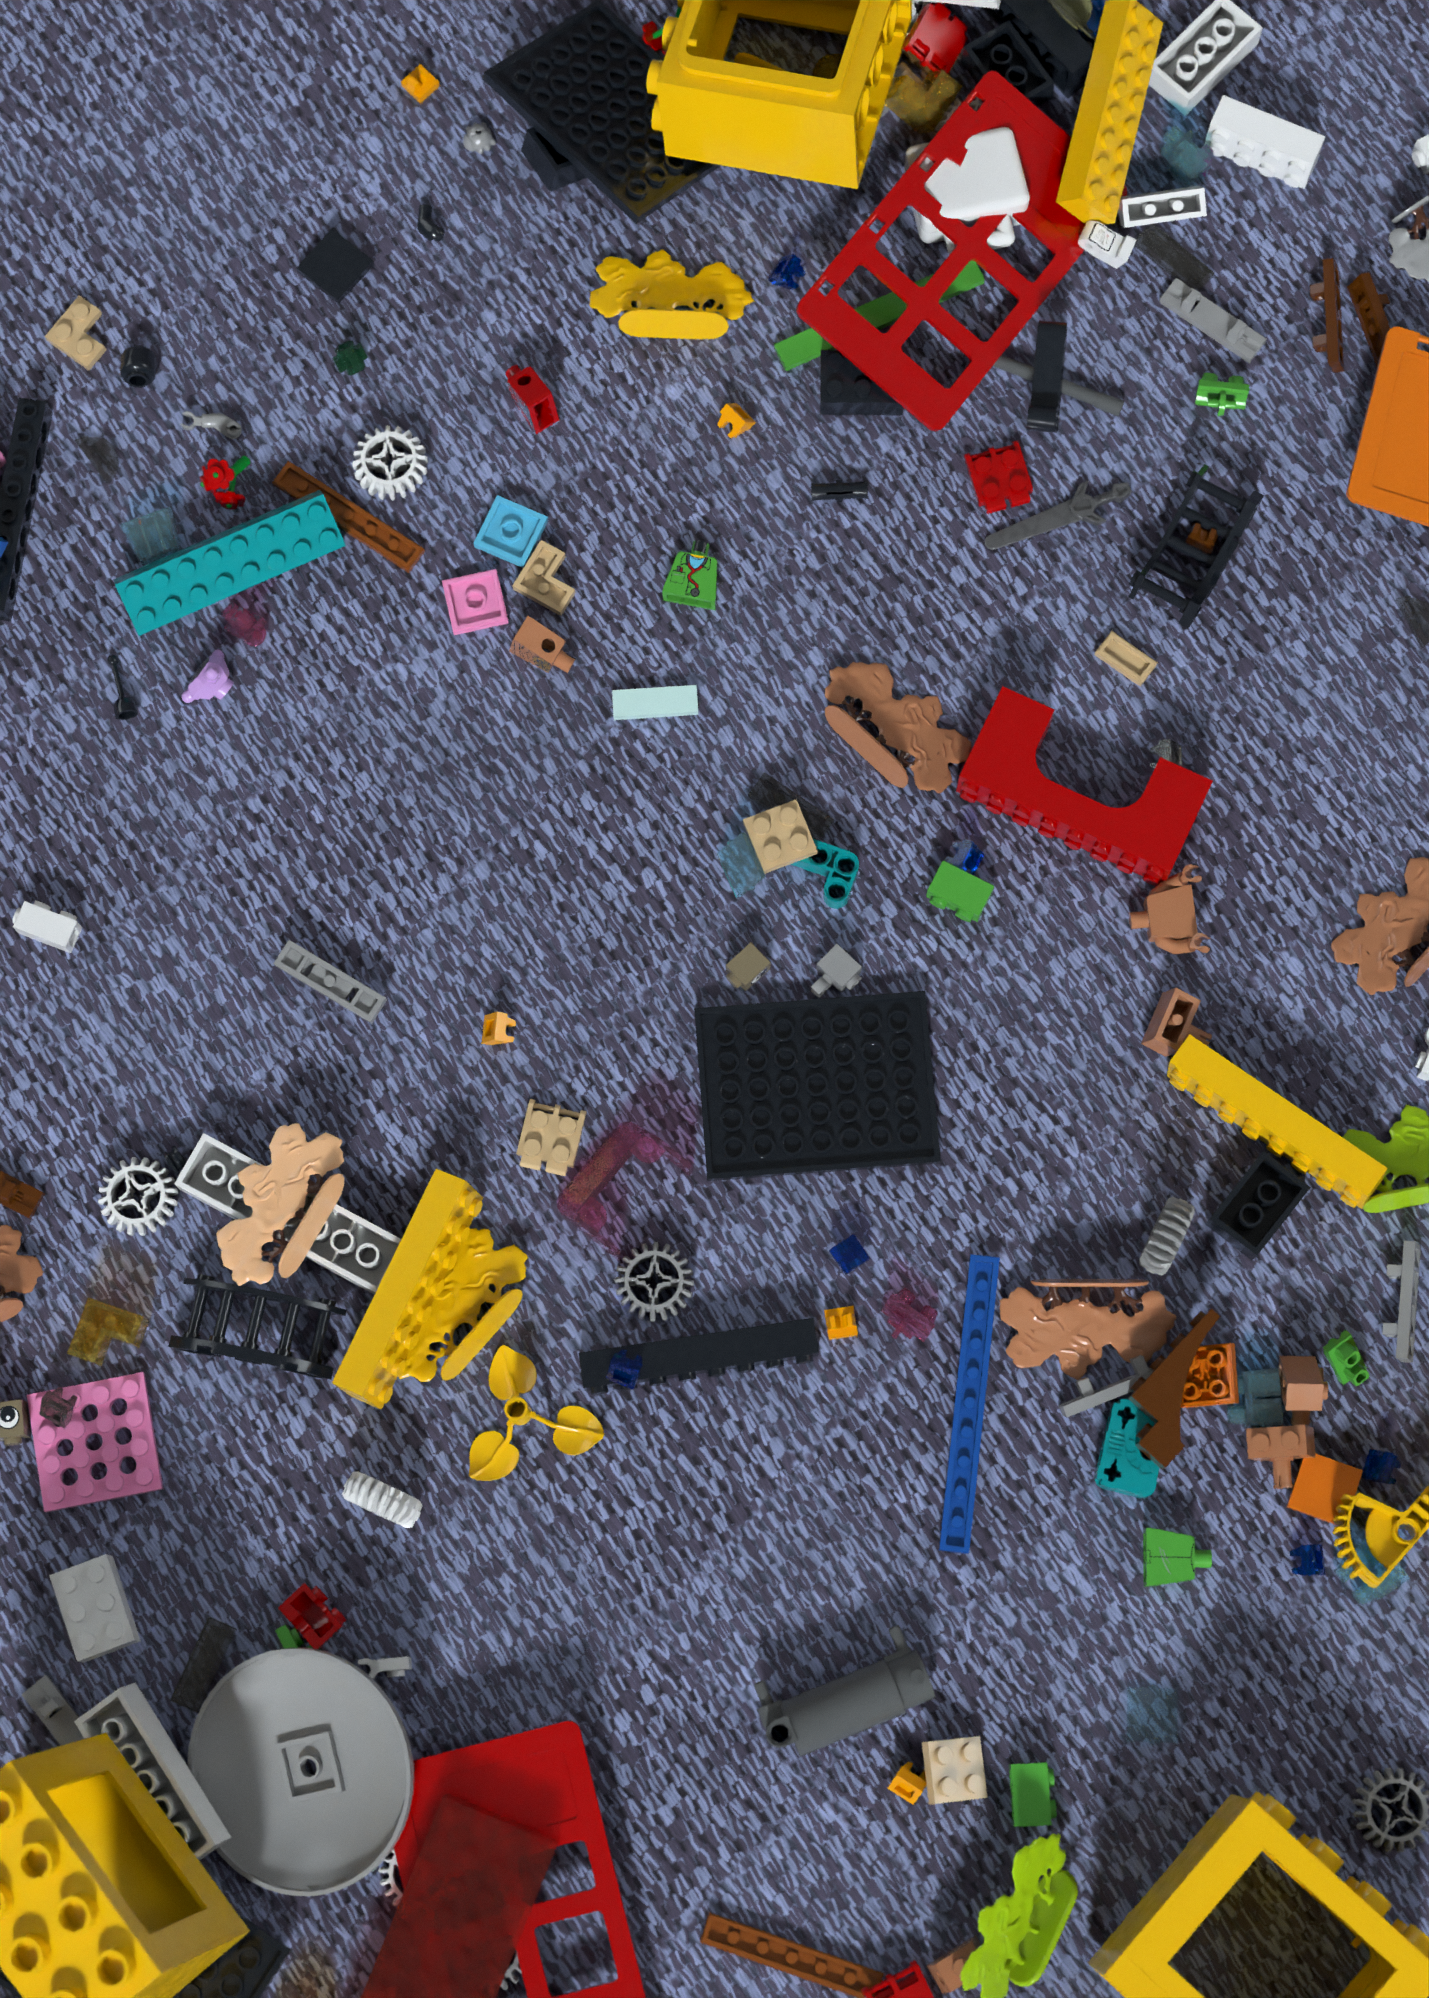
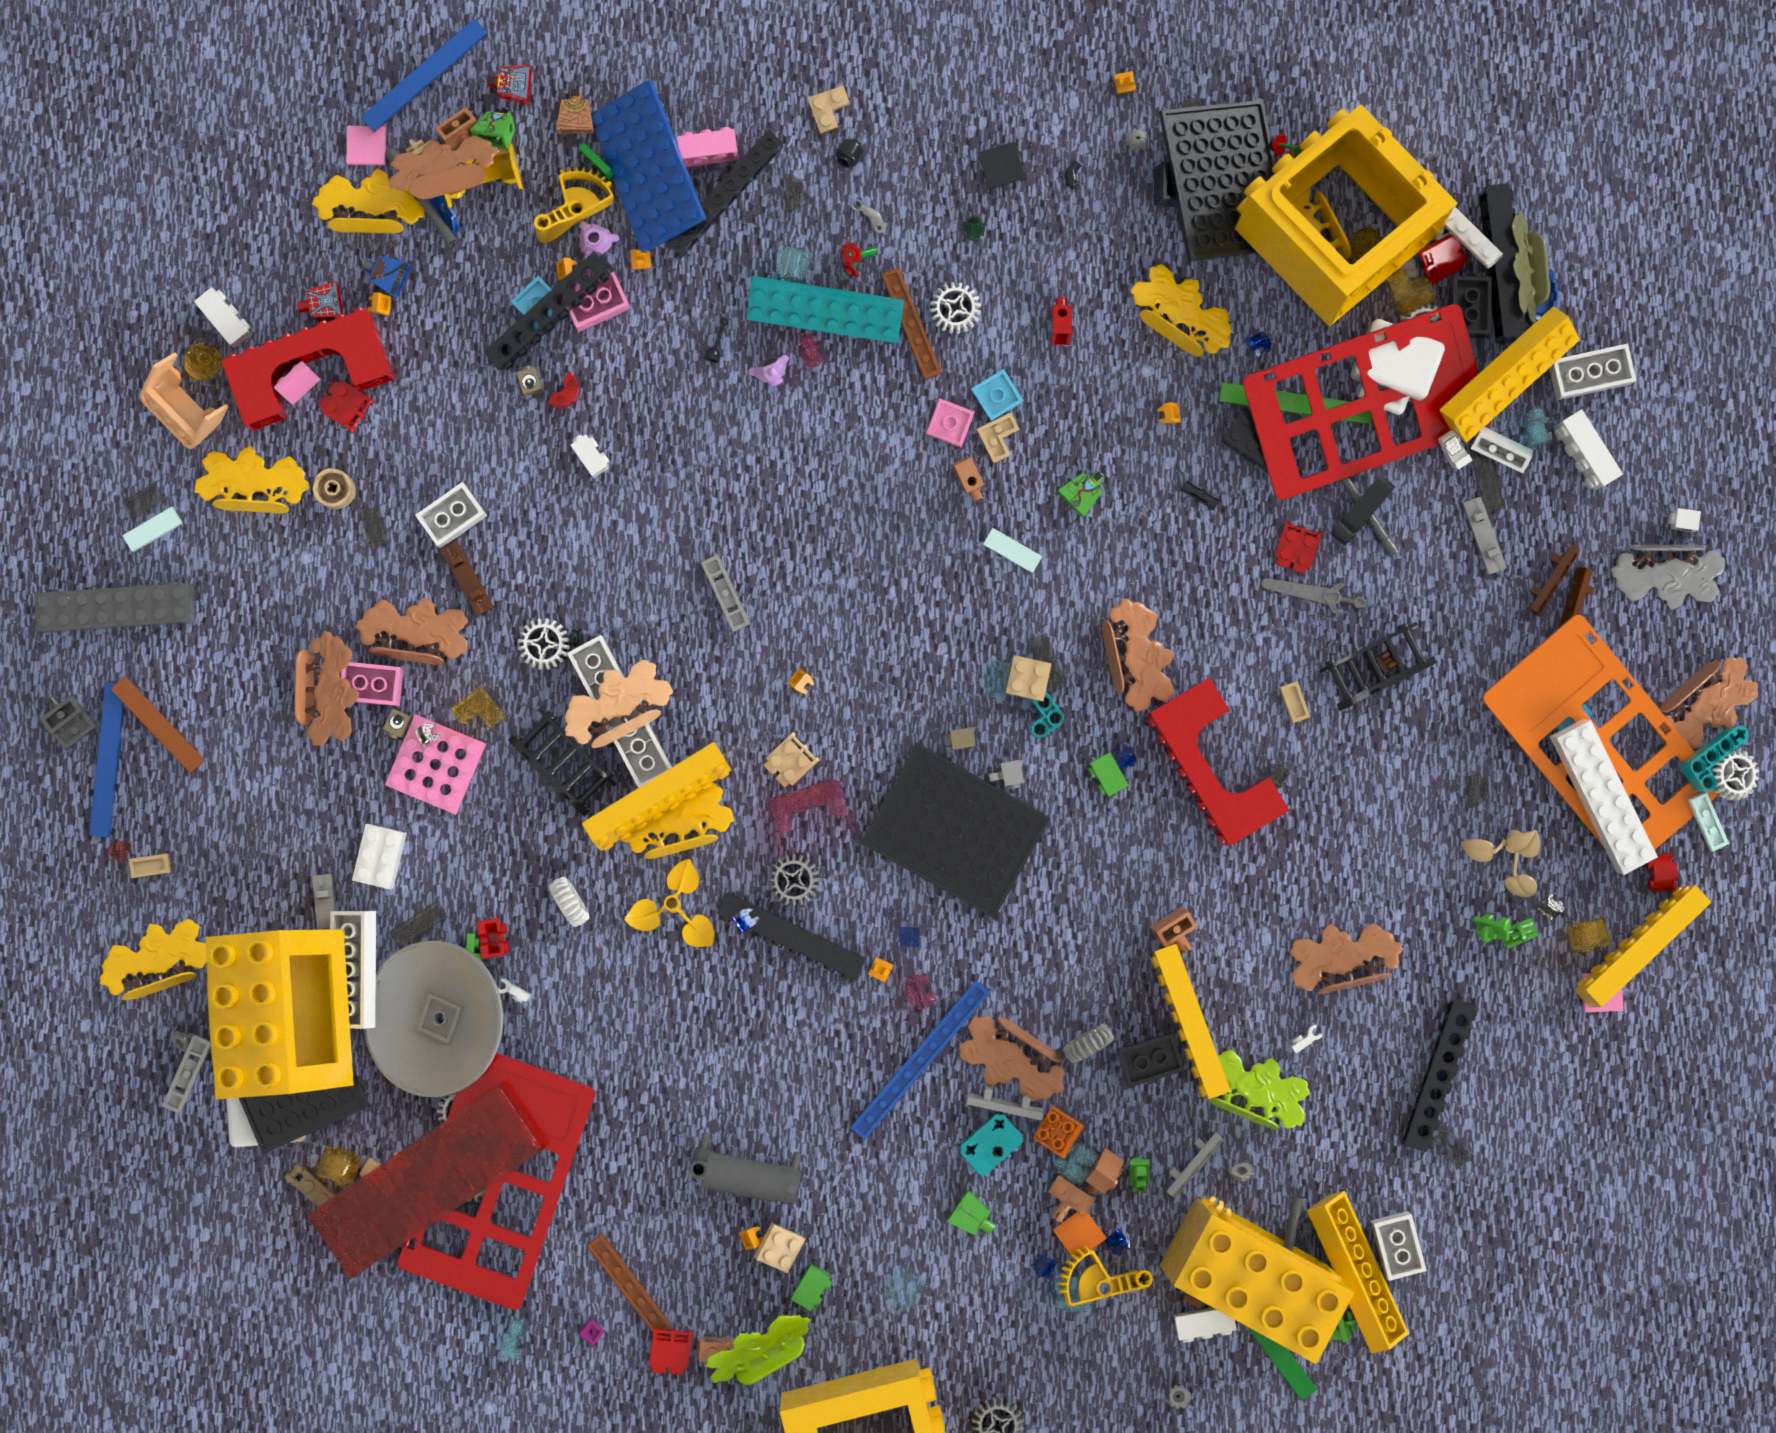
camera: 25 degrees right, 10 degrees up
(1162, 1393) = (1027, 1125): reddish brown arch -> none
(1171, 915) = (1215, 867): nougat torso -> none
(1222, 394) = (1456, 585): bright green hips -> none

